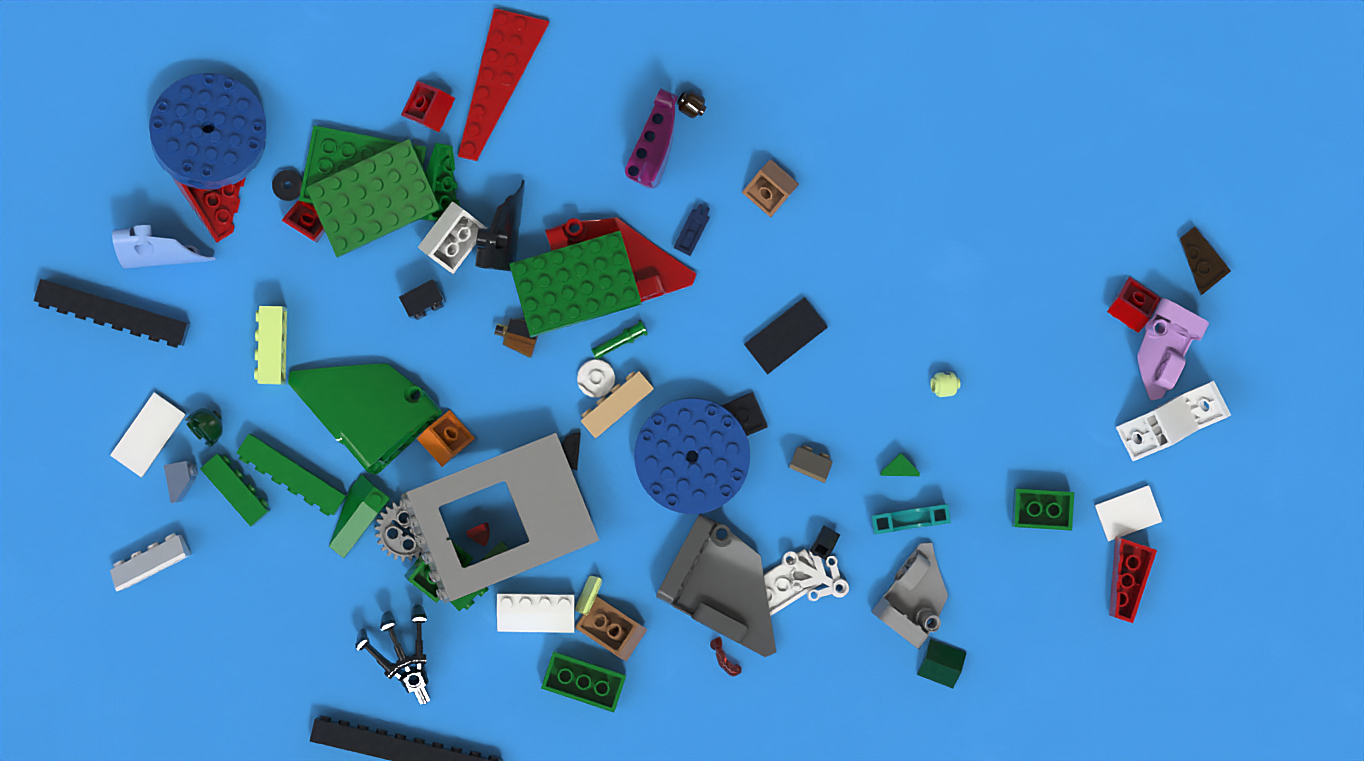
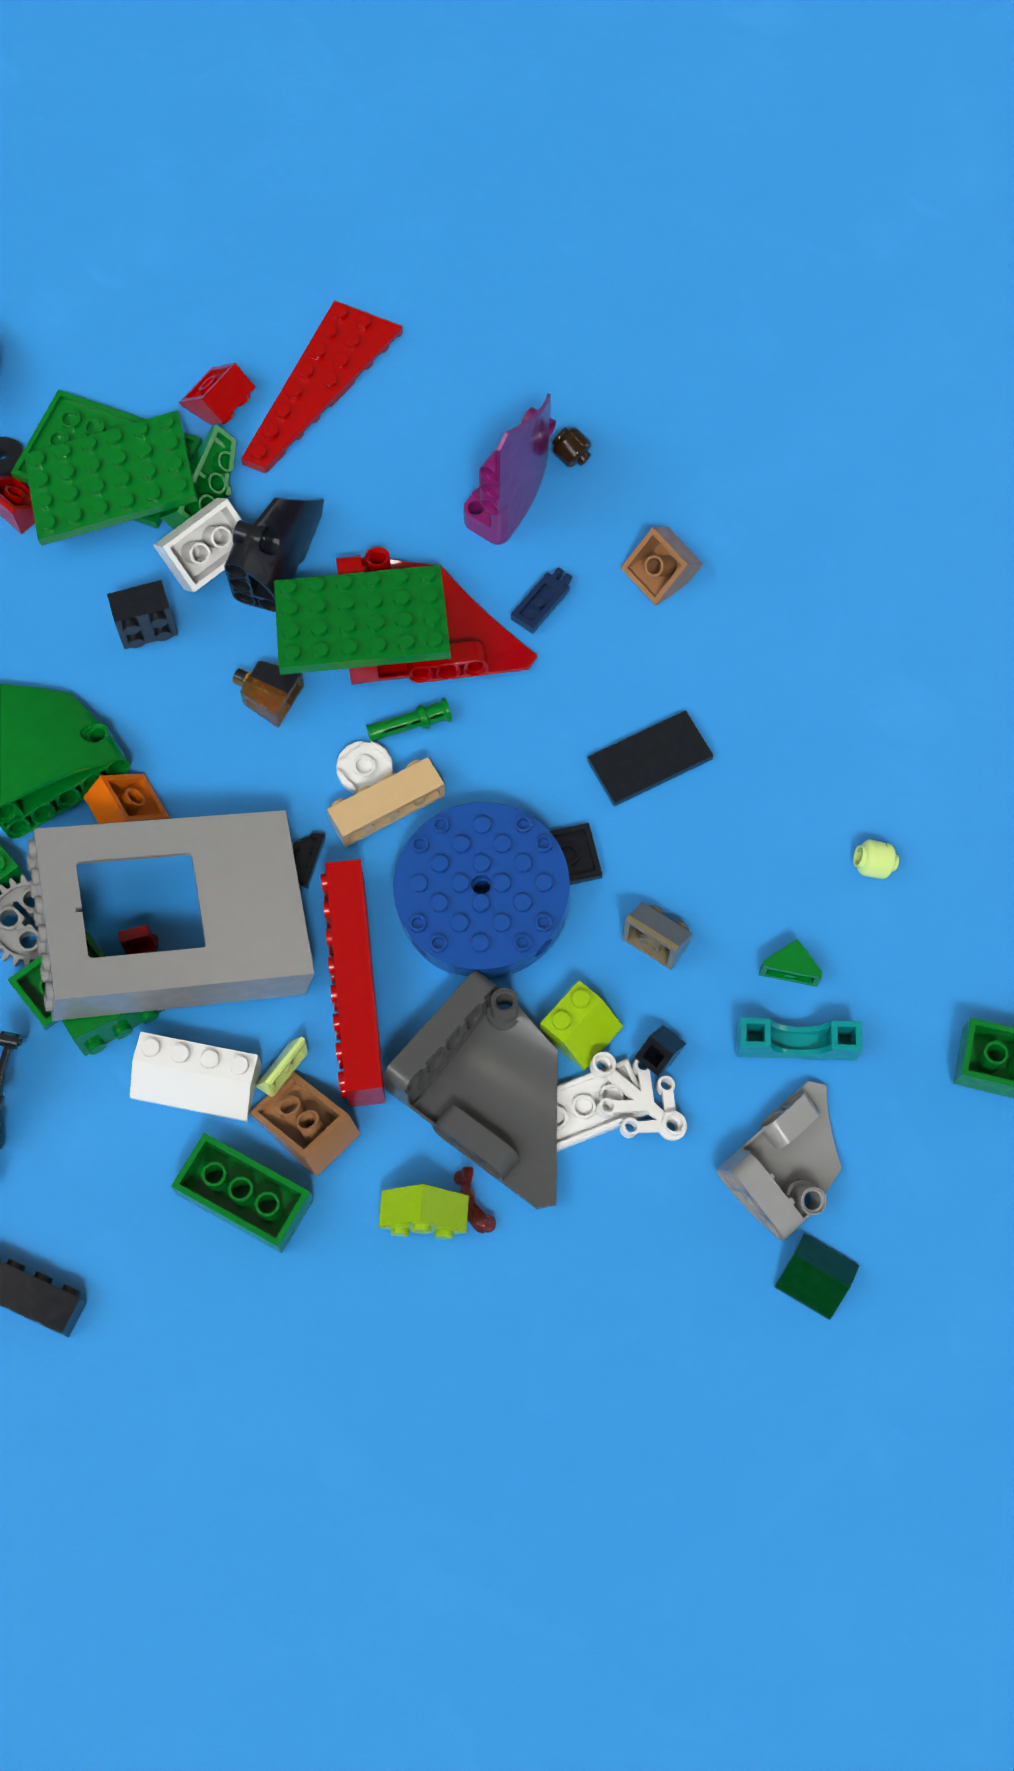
camera: 10 degrees right, 20 degrees down
(624, 536) = (354, 979): none -> red brick
(696, 673) = (423, 1211): none -> lime brick
(772, 534) = (580, 1025): none -> lime slope

